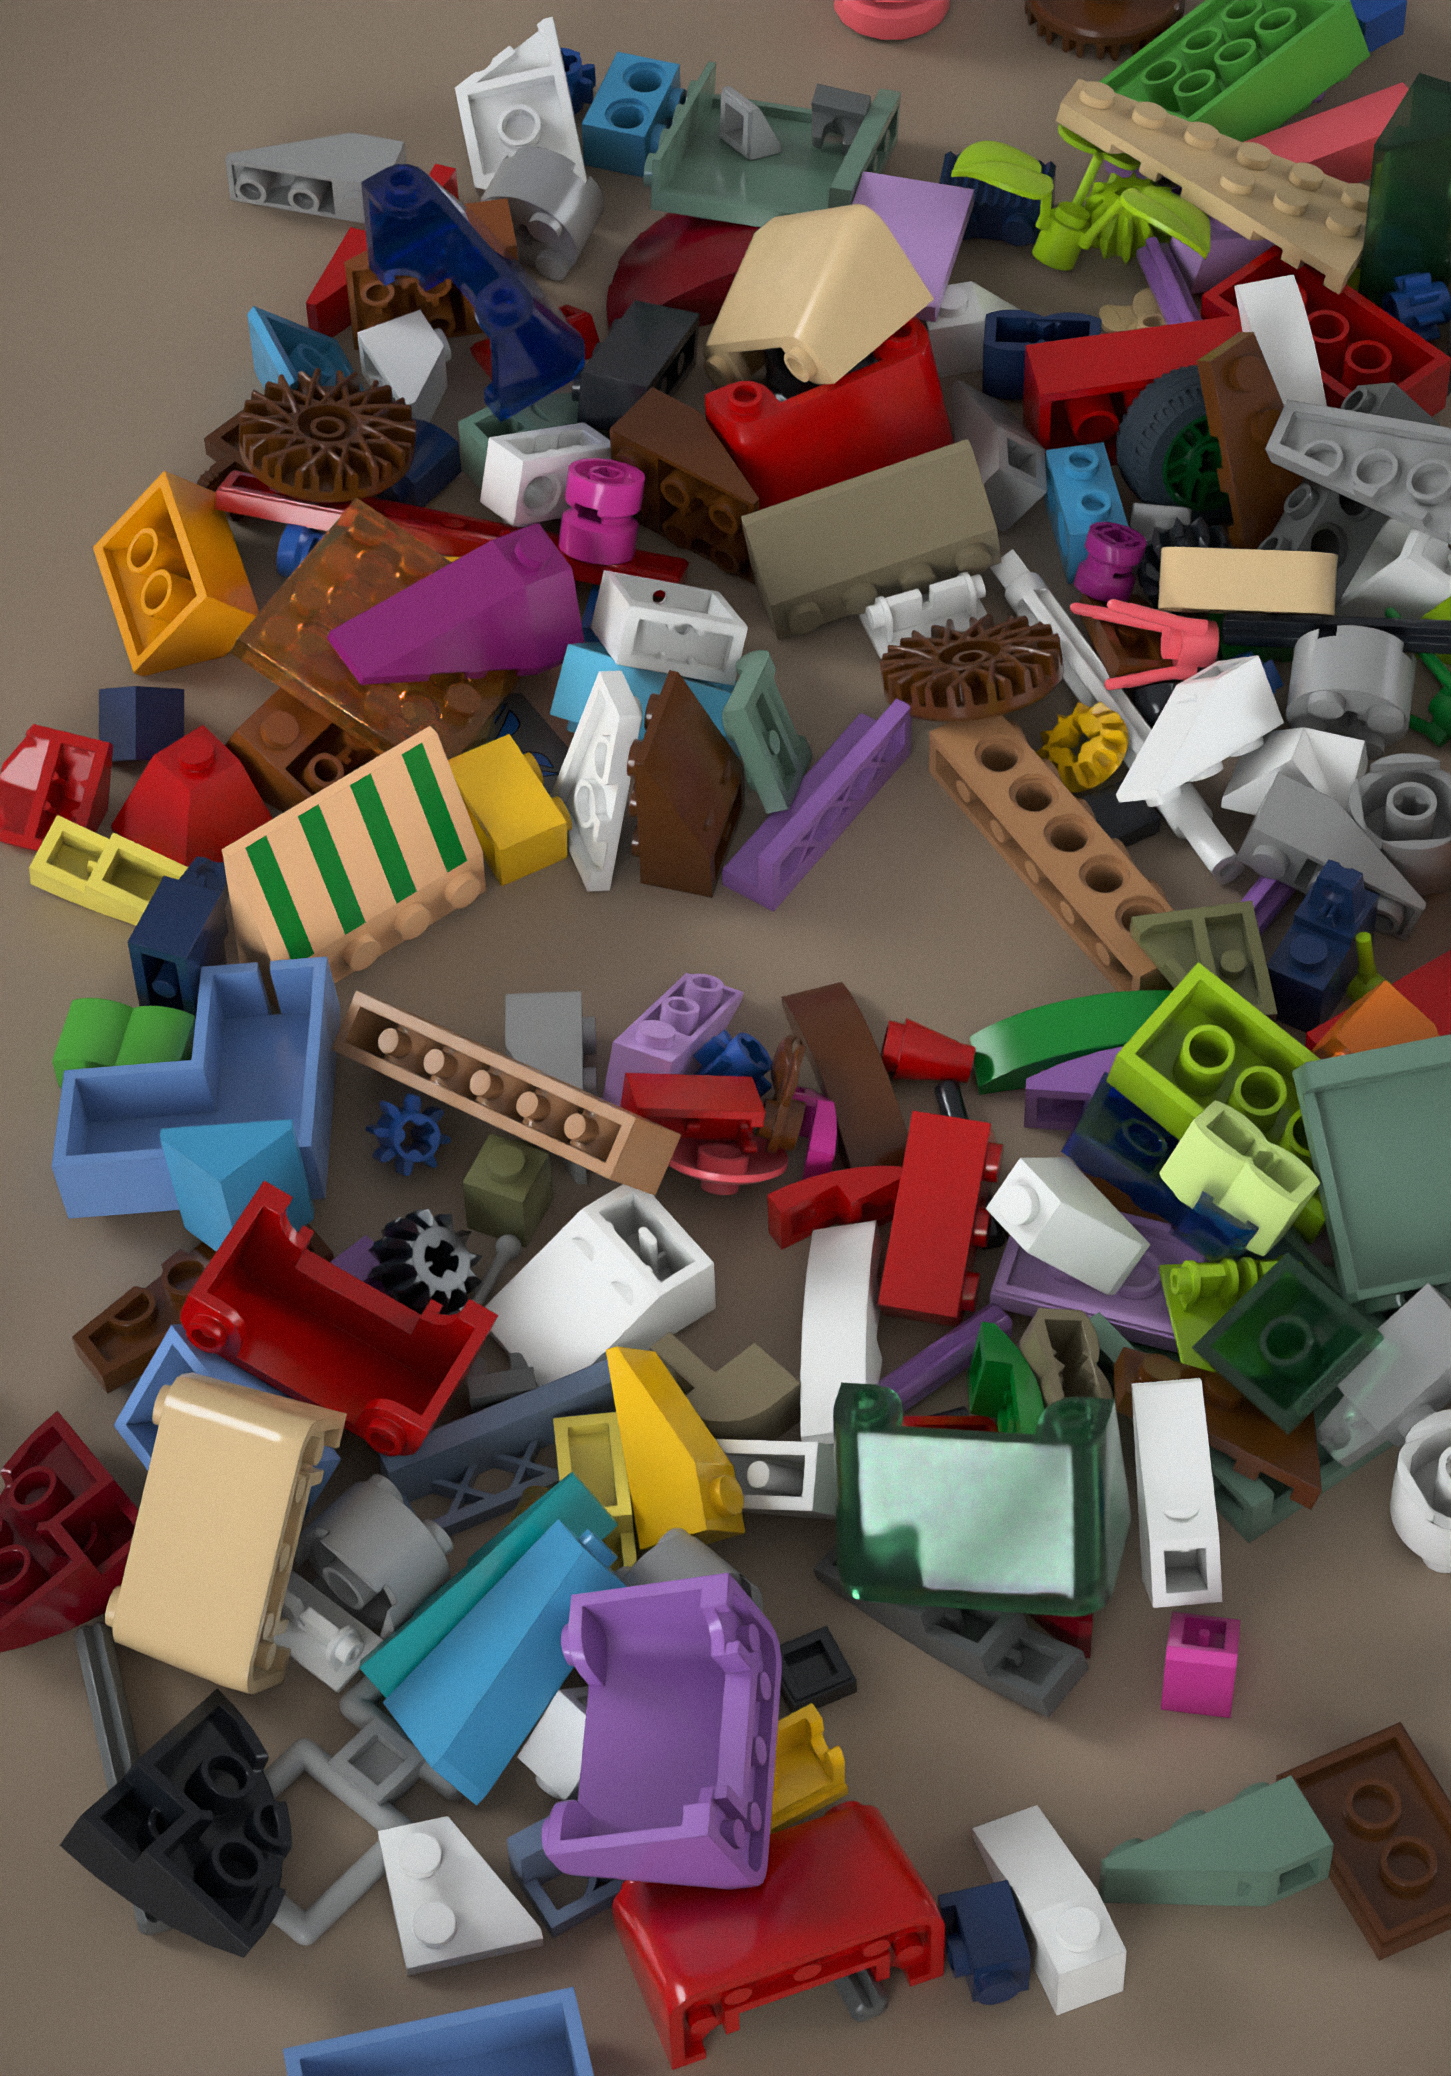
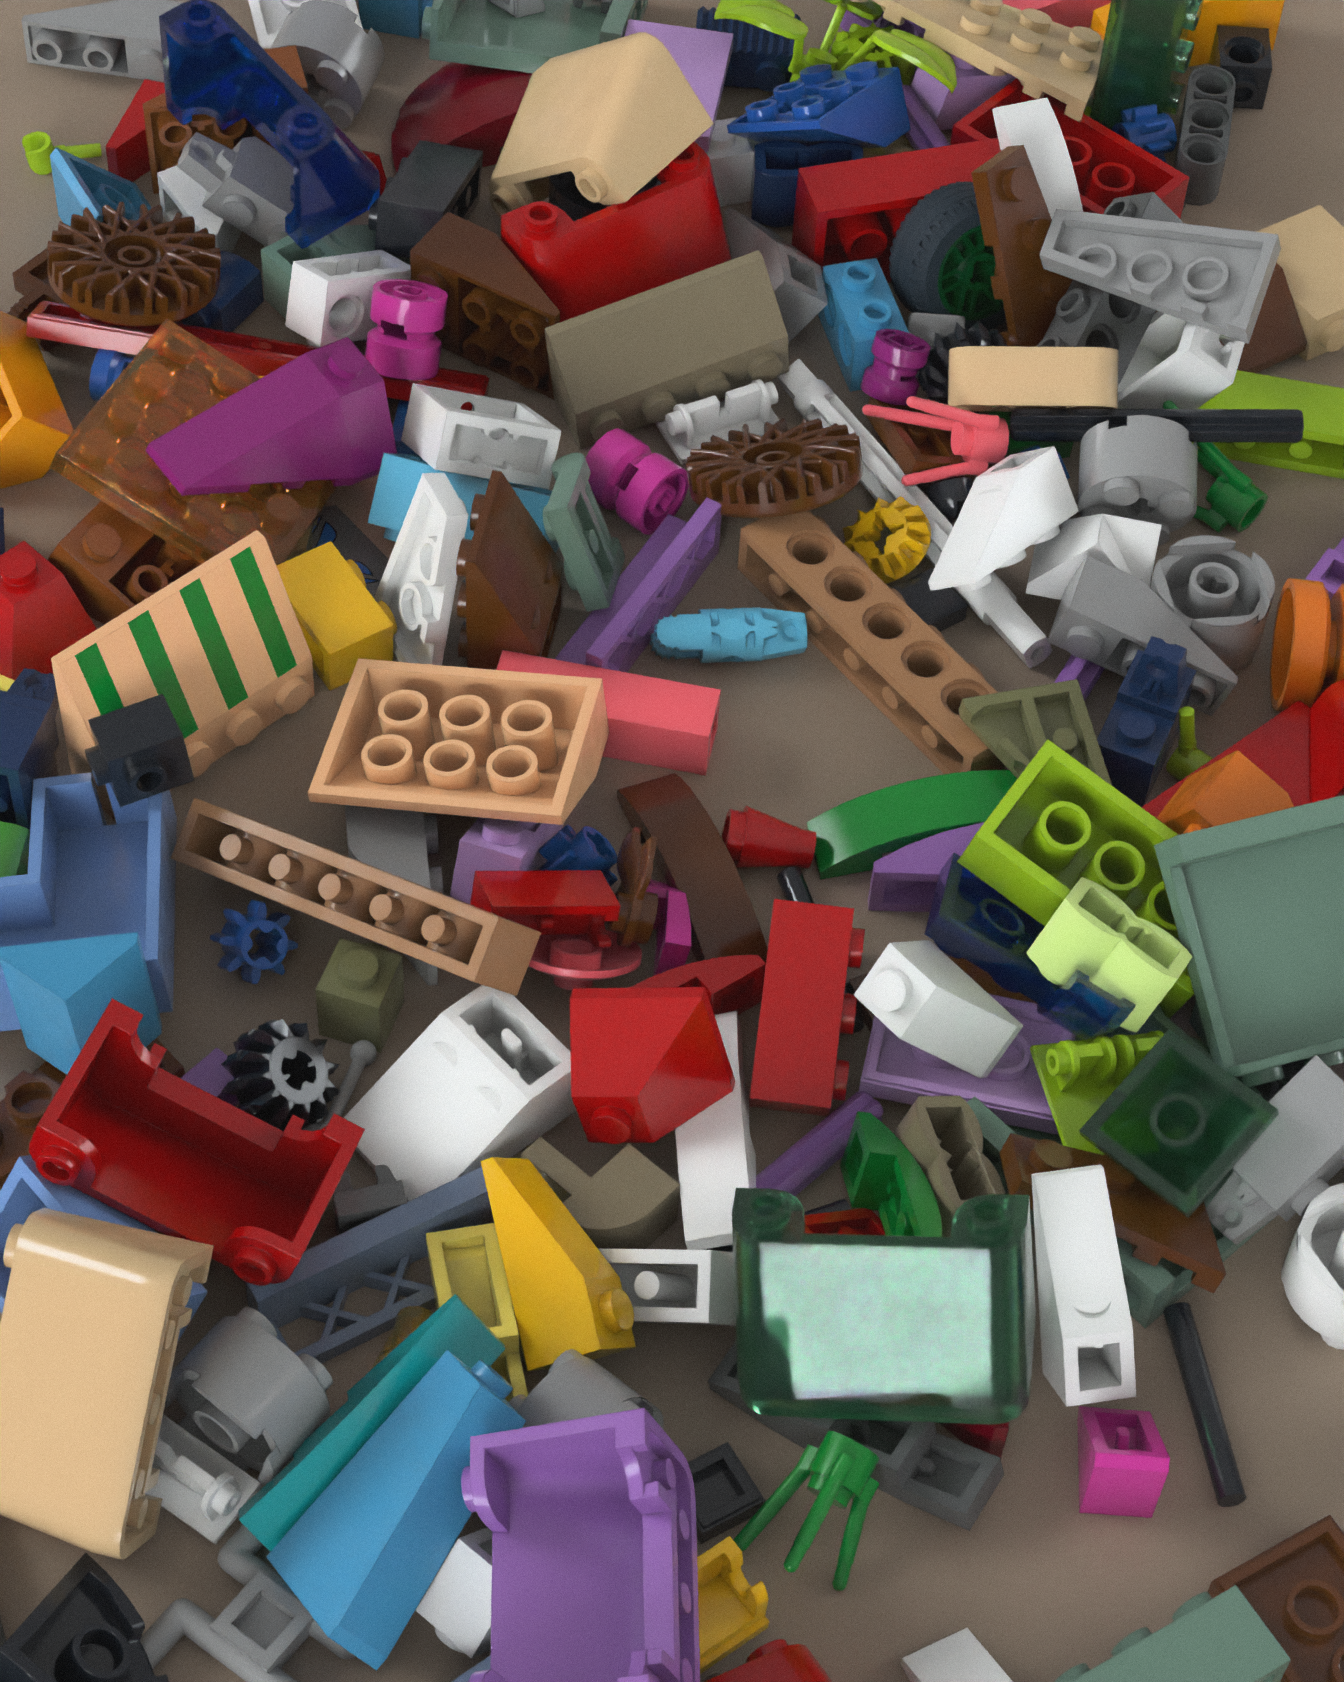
camera: 10 degrees left, 0 degrees up
(239, 302) = (39, 147): none -> lime hand
(304, 943) = (139, 751): none -> black brick
(442, 349) = (242, 184): none -> light grey hinge
(626, 944) = (463, 742): none -> light nougat slope
(772, 917) = (647, 716): none -> coral brick
(773, 1263) = (644, 1060): none -> red slope
(826, 677) = (634, 481): none -> dark pink wheel
(912, 842) = (731, 635): none -> medium azure hinge
(921, 1656) = (838, 1473): none -> green plant
(1072, 271) = (844, 106): none -> blue slope
(1294, 1615) = (1204, 1405): none -> black bar

